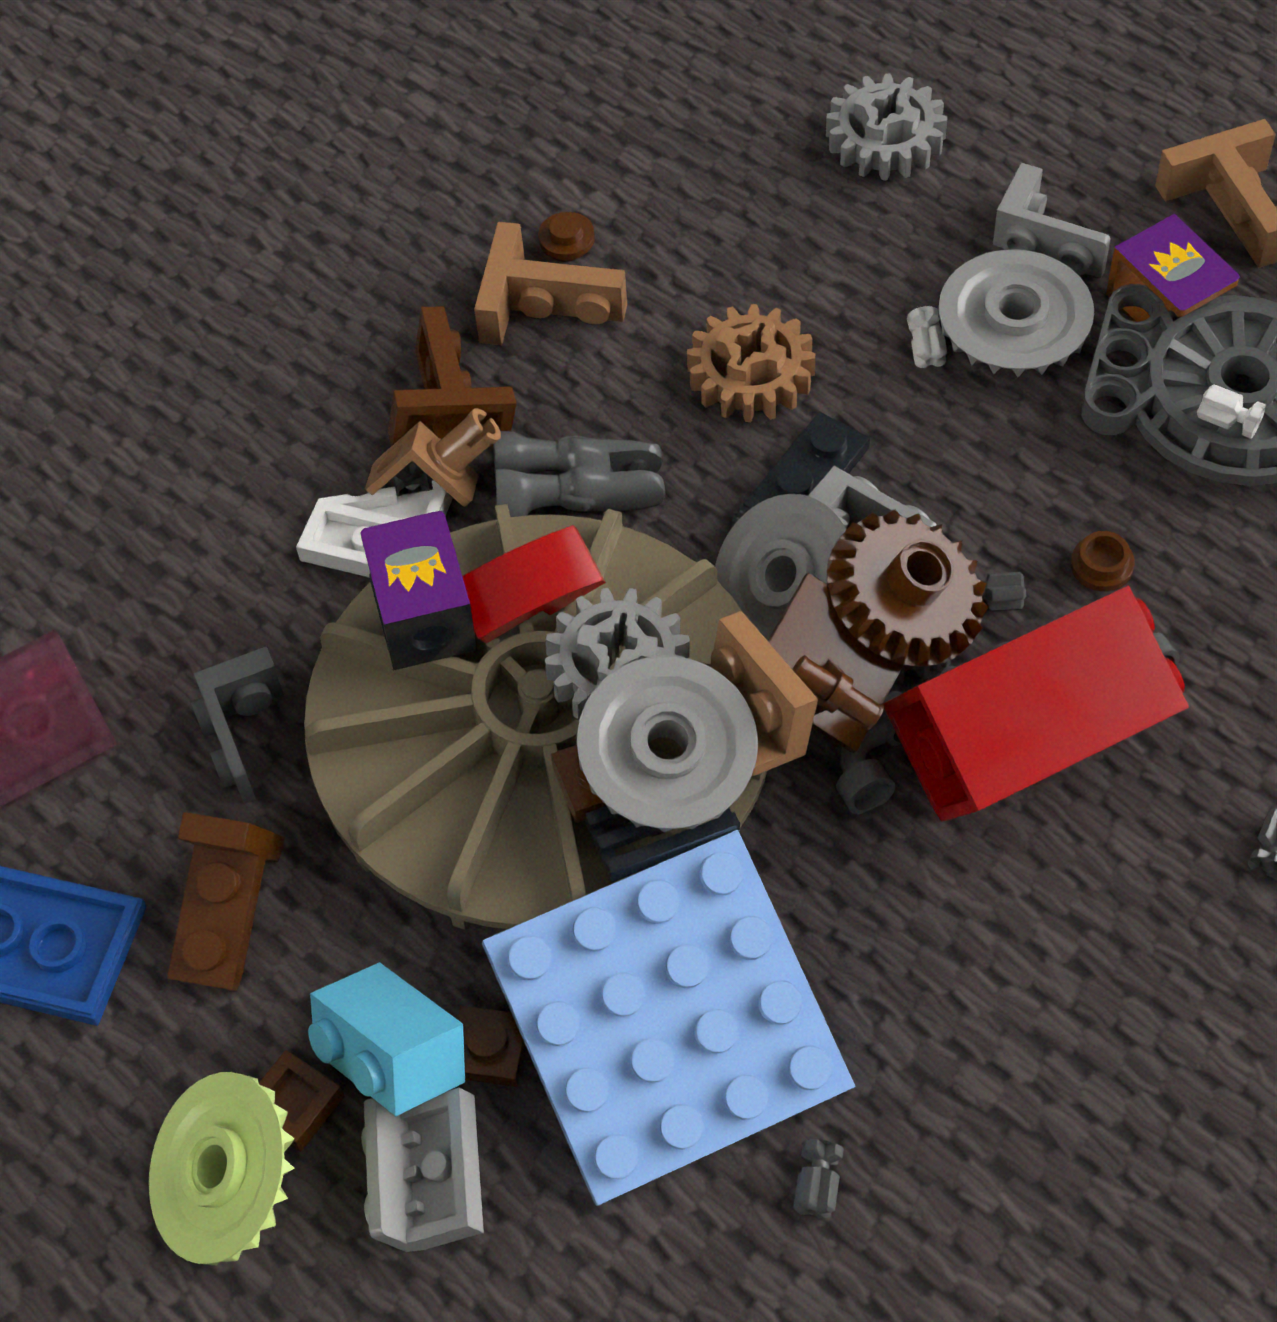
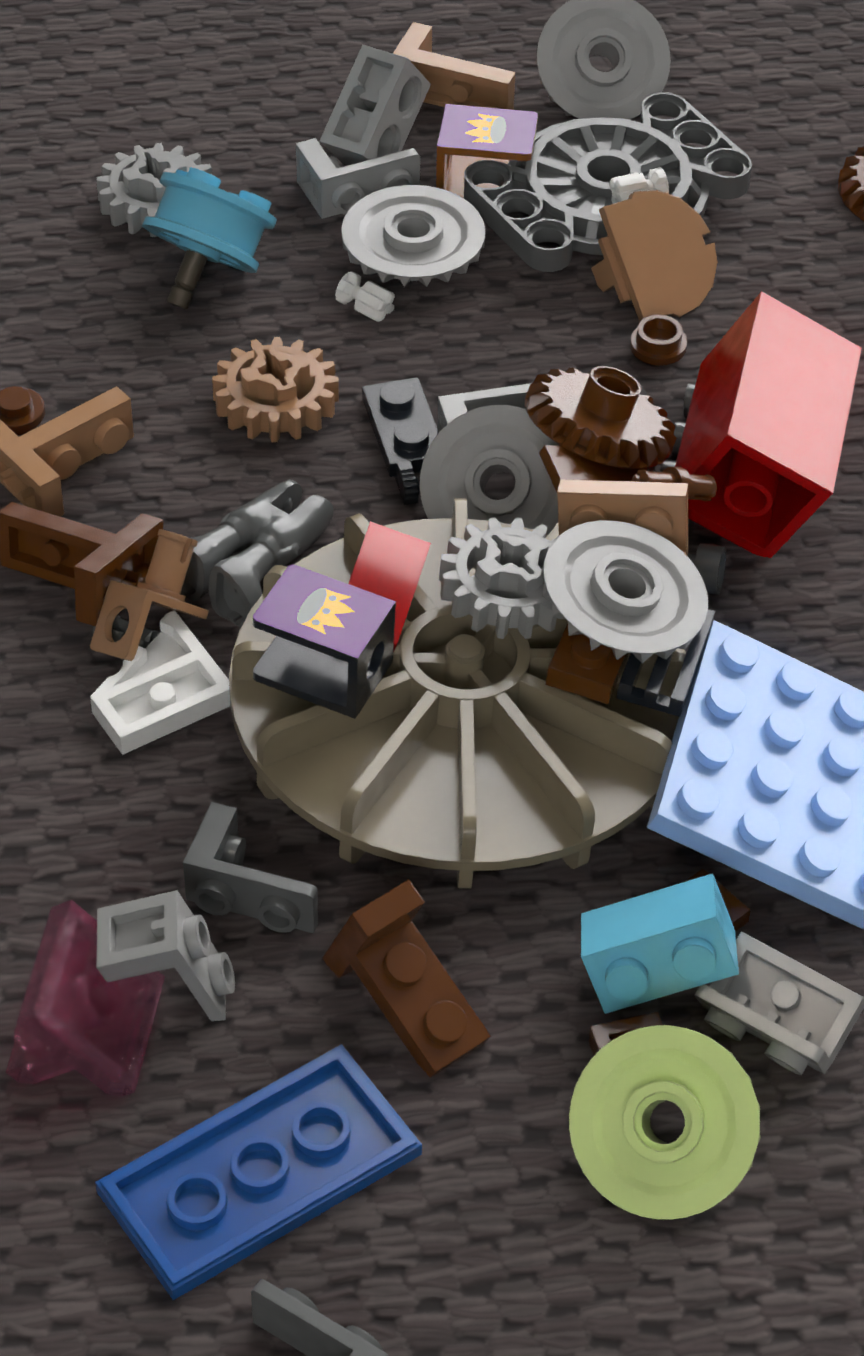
camera: 55 degrees left, 10 degrees down
(98, 731) = (163, 935): none -> light grey bracket
(854, 186) = (207, 226): none -> medium azure wheel
(1117, 177) = (375, 107): none -> light grey brick
(1190, 484) = (655, 254): none -> medium nougat piece

